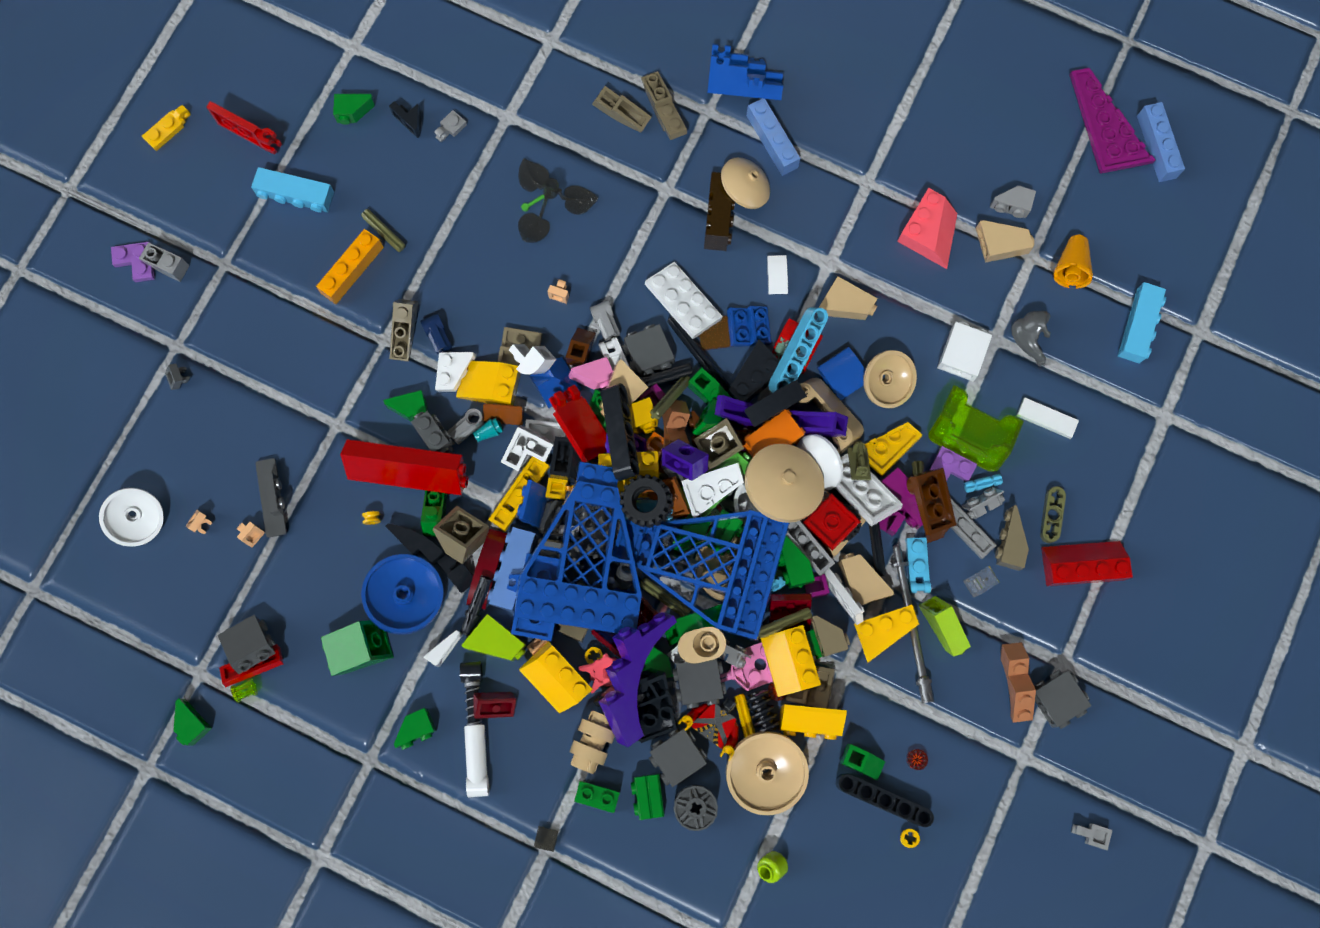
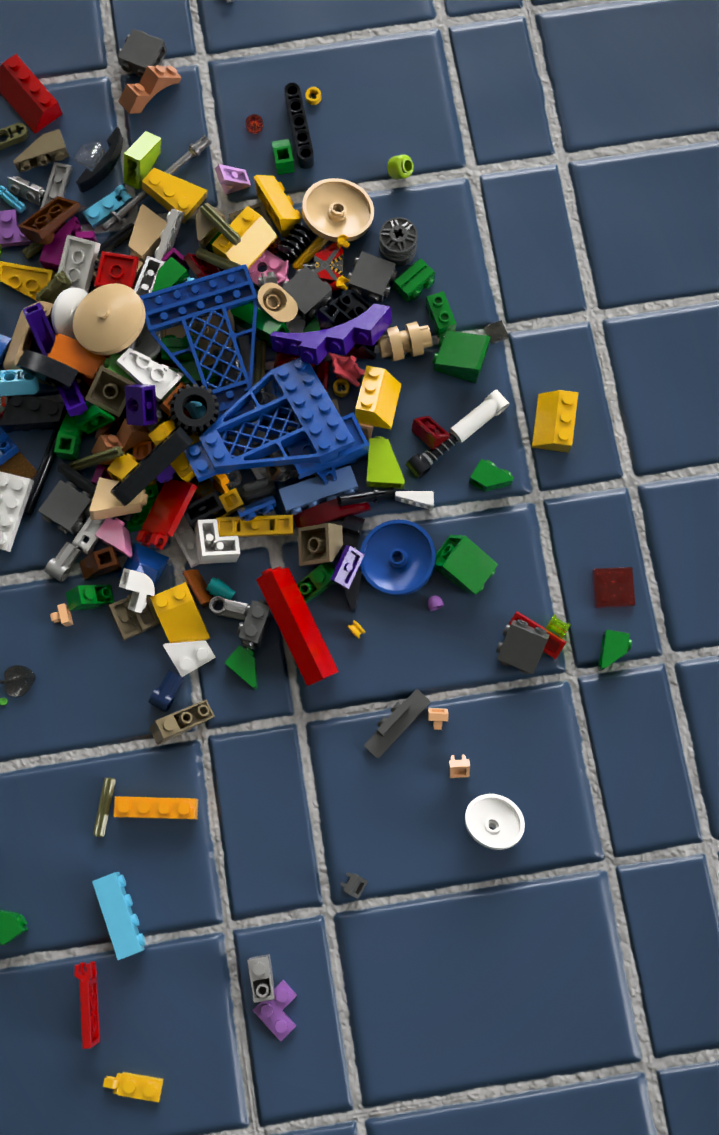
camera: 120 degrees left, 0 degrees up
(240, 767) = (614, 587): none -> clear red plate
(343, 600) = (435, 603): none -> medium lavender hinge
(421, 542) = (347, 567): none -> plate
(422, 828) = (555, 420): none -> yellow slope
(543, 785) = (461, 355): none -> green slope
(558, 322) = (89, 597): none -> green slope
(814, 644) = (220, 224): none -> olive axle
(869, 697) = (232, 178): none -> lavender slope
(955, 565) = (90, 179): none -> black slope

